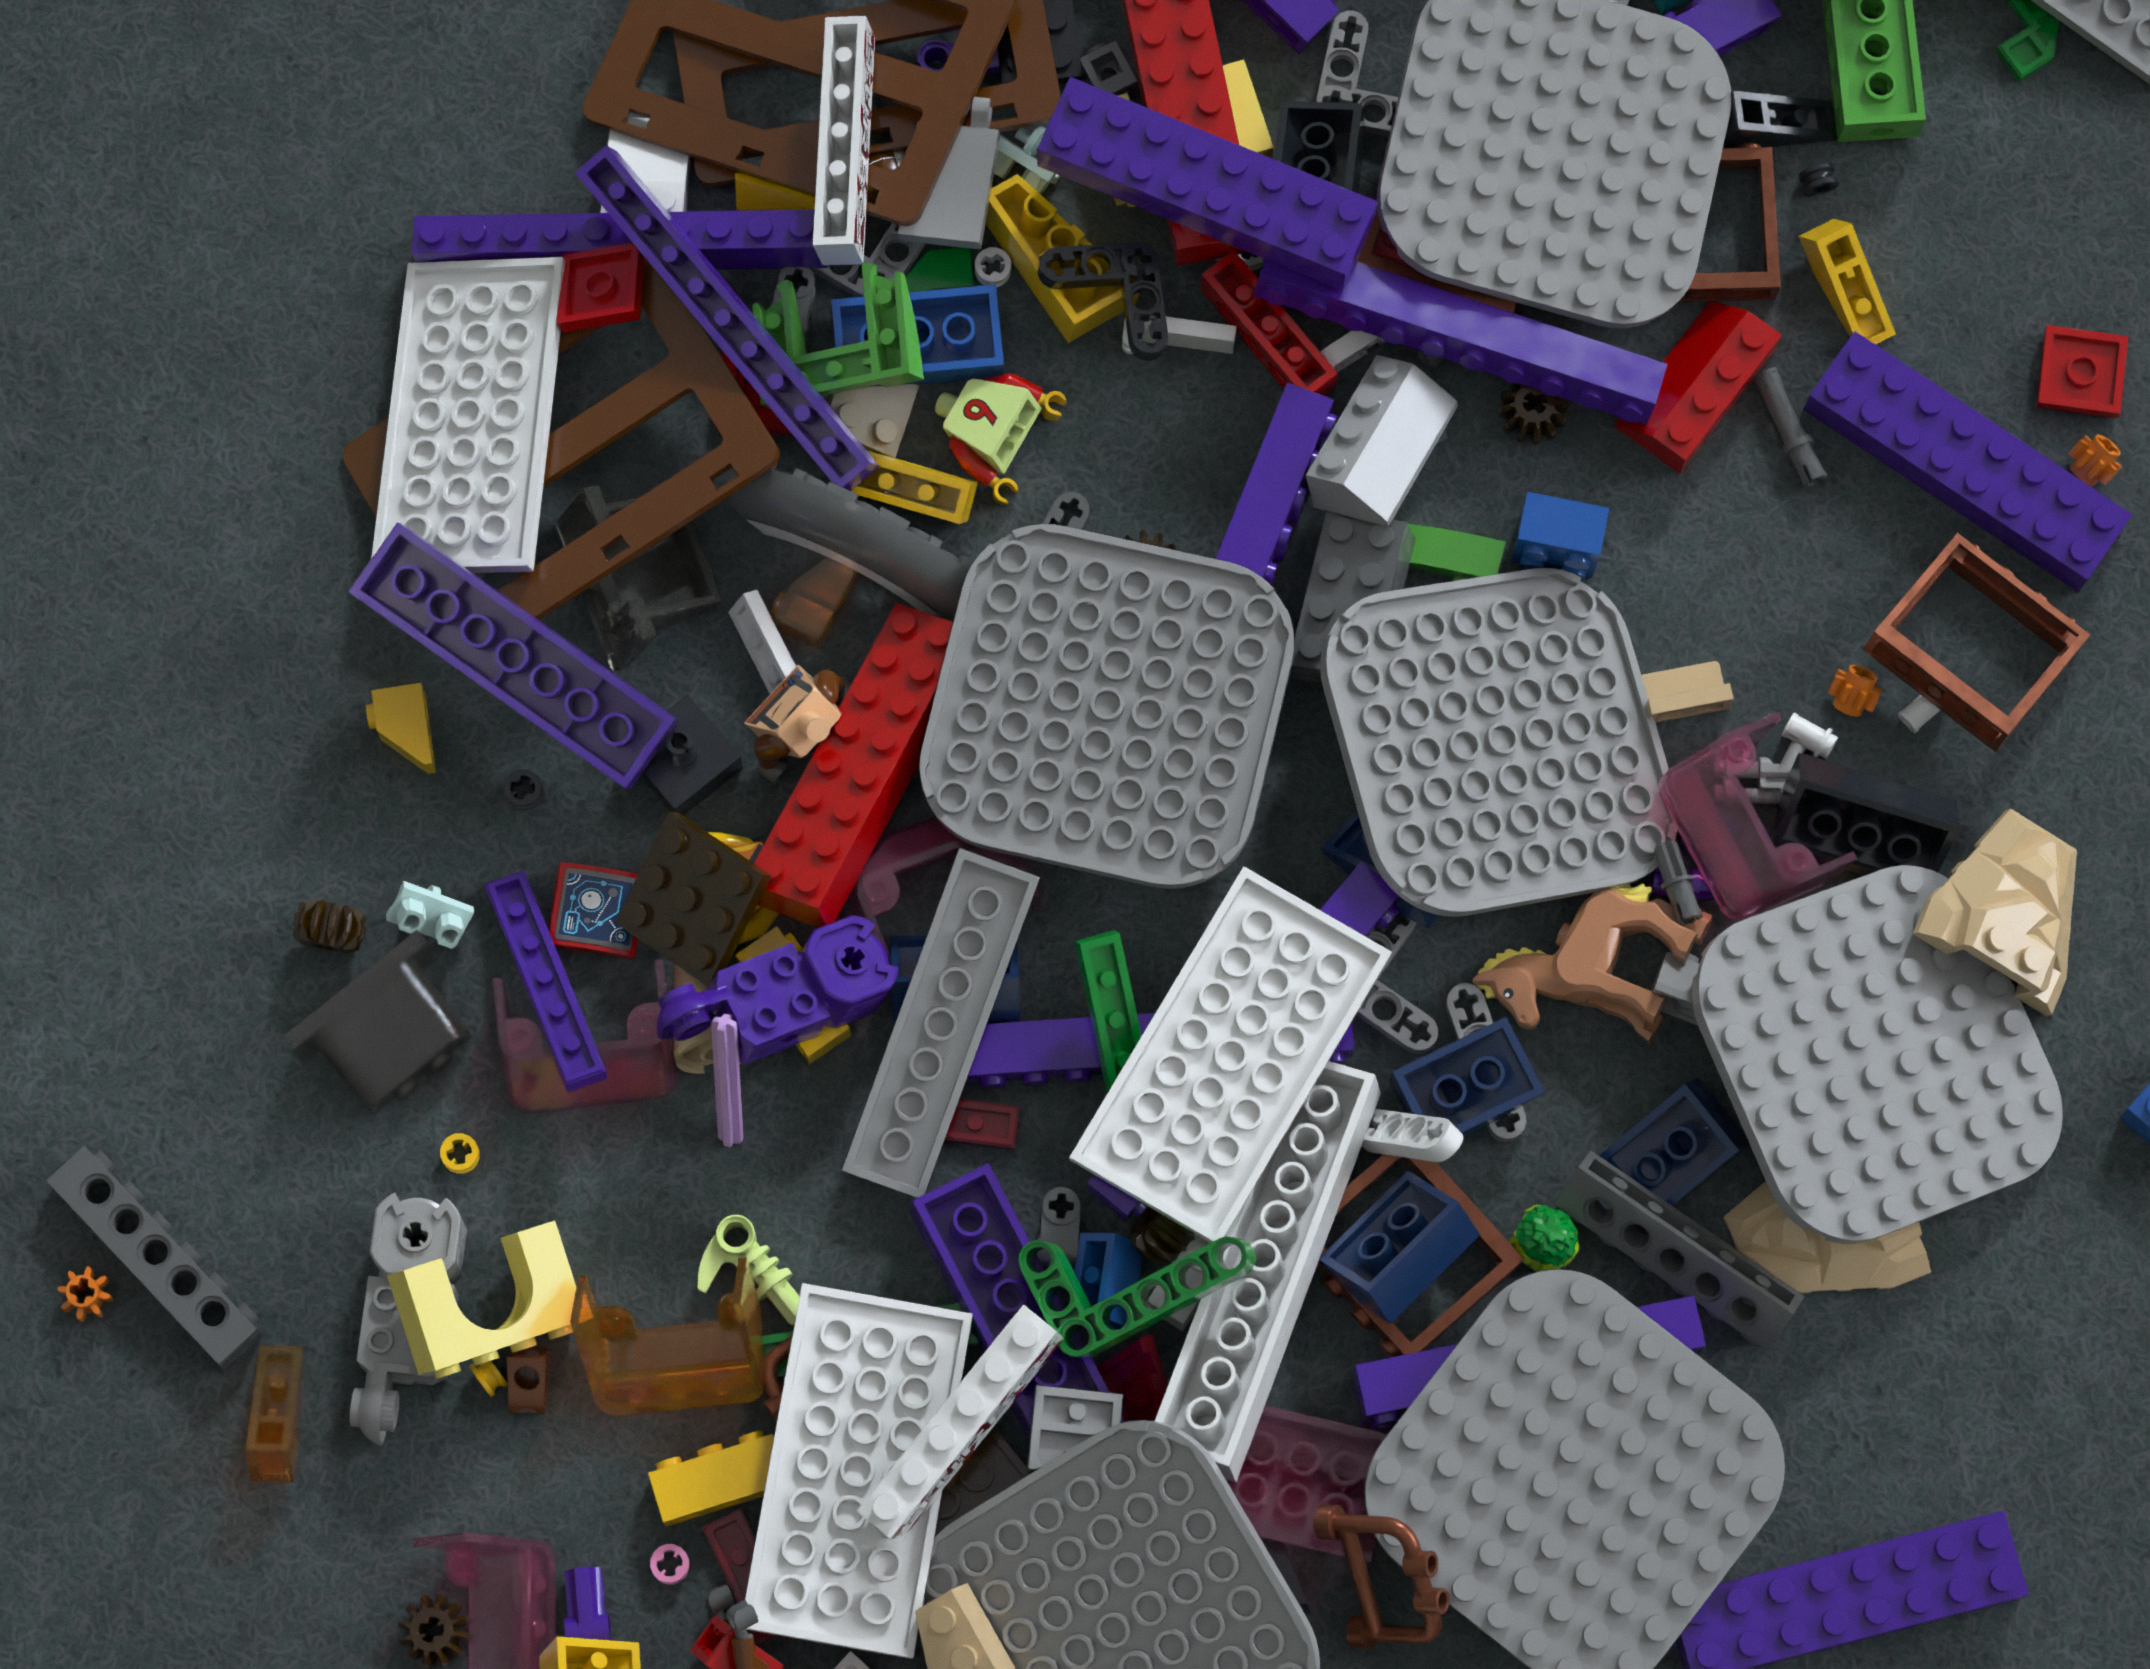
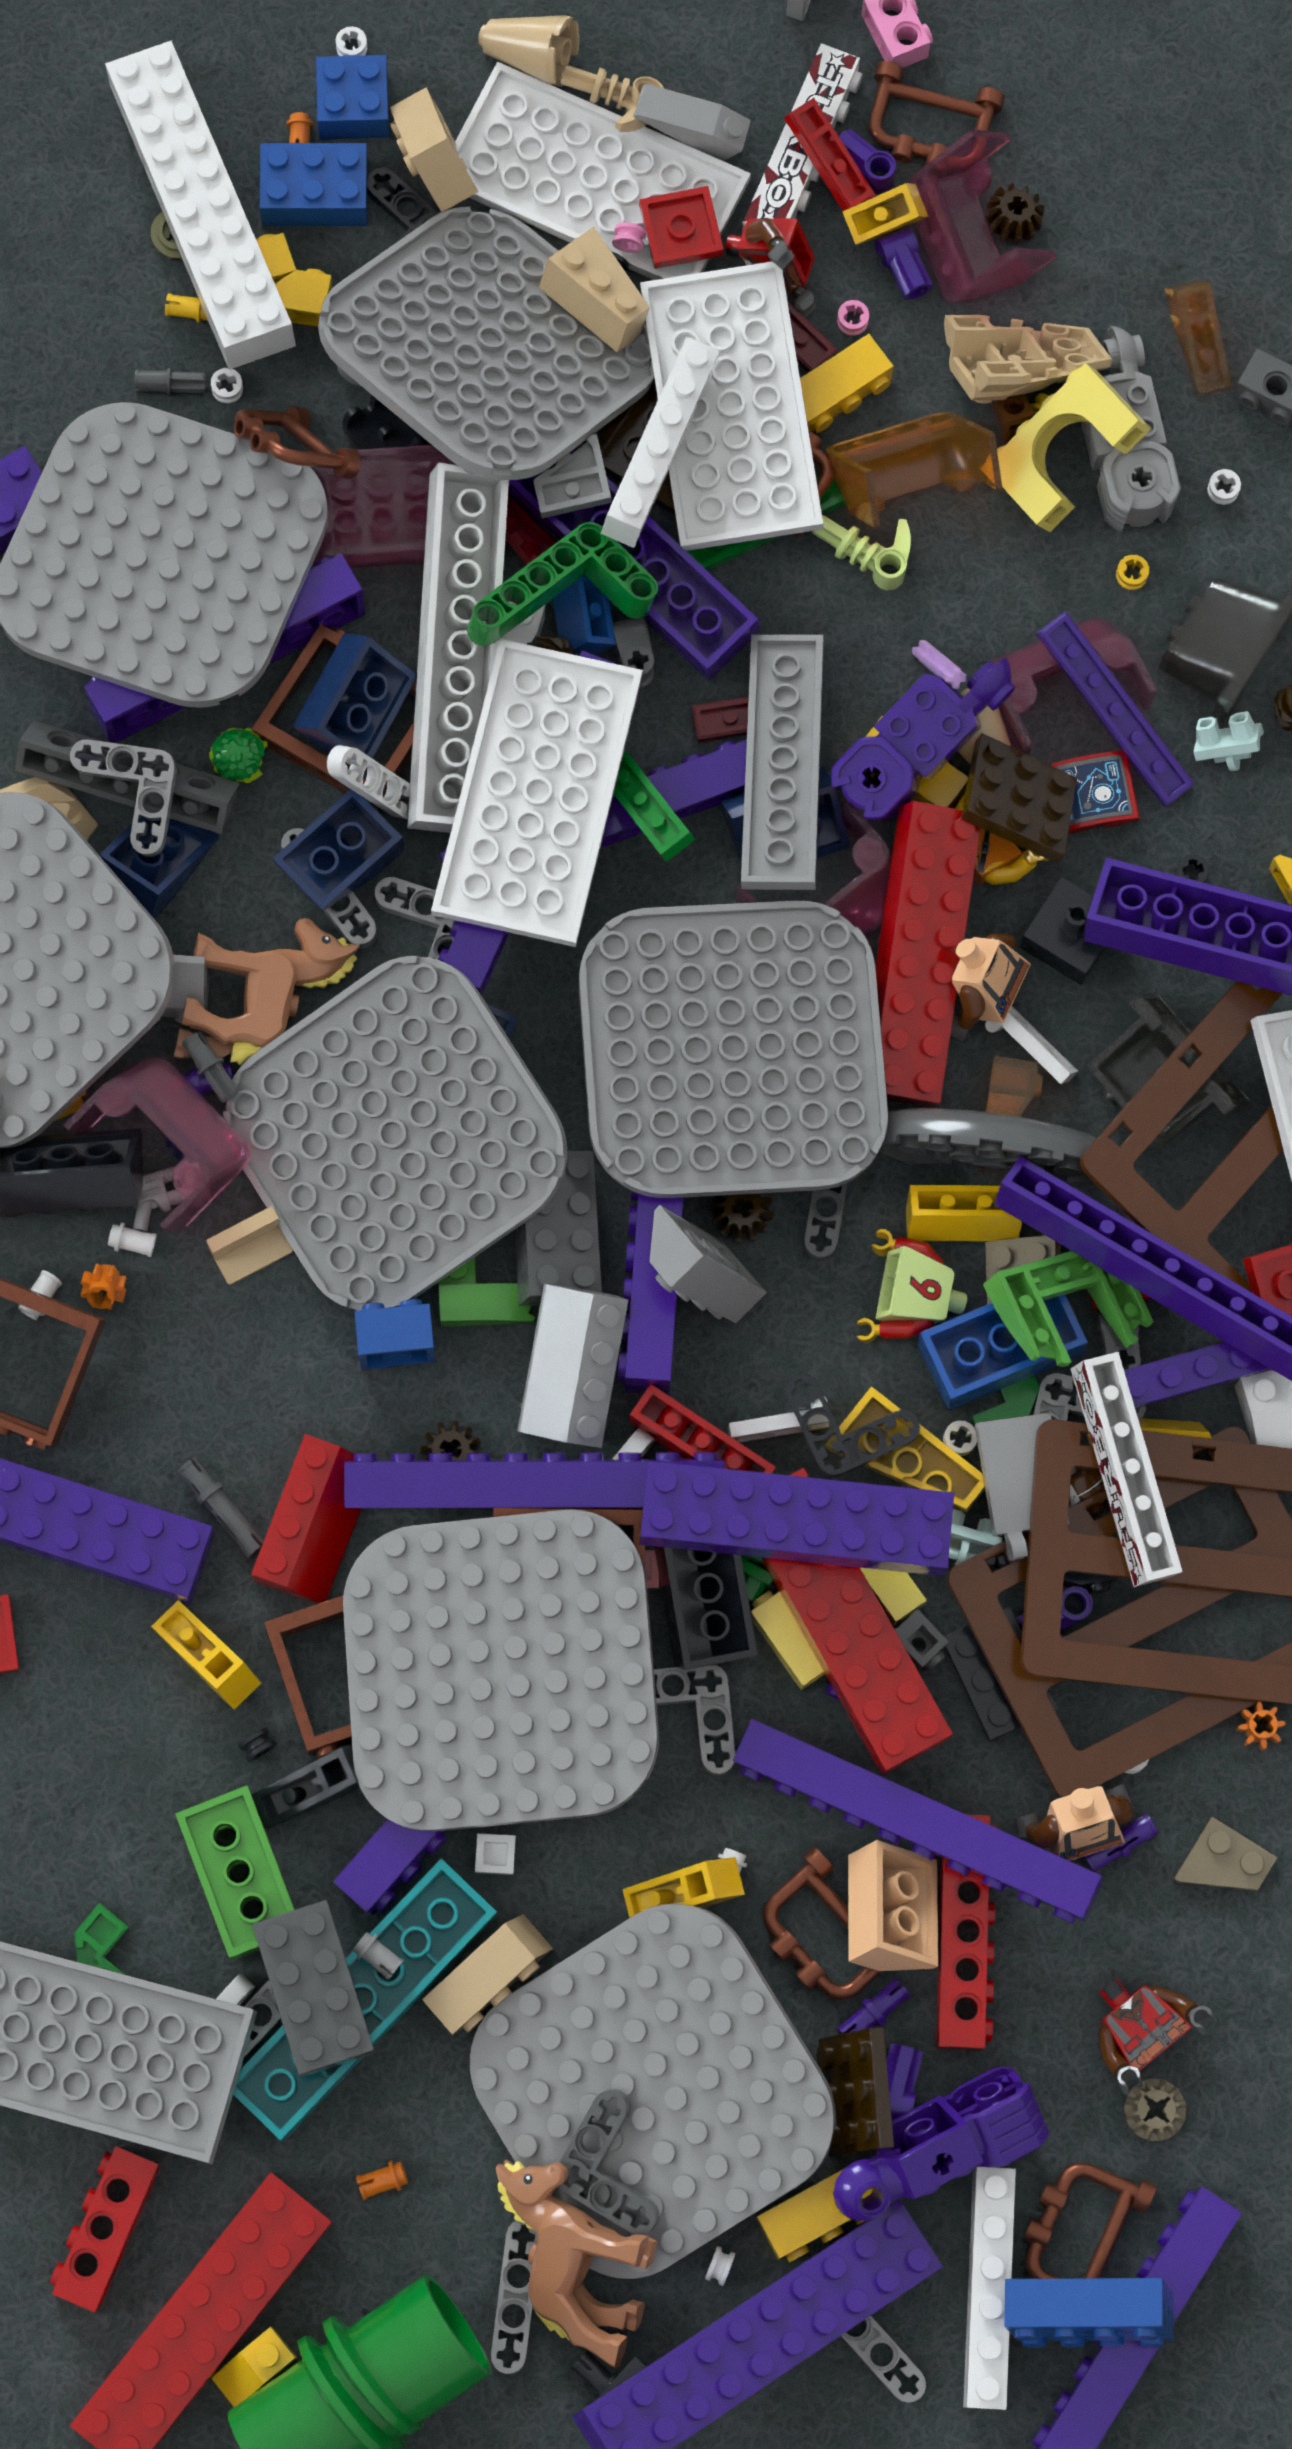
camera: 160 degrees right, 0 degrees up
(307, 1232) = (1227, 477): none -> white bush
(498, 1436) = (1016, 359): none -> tan wedge
(1215, 492) = (701, 1268): none -> light grey slope
(1661, 1216) = (147, 785): none -> light grey beam

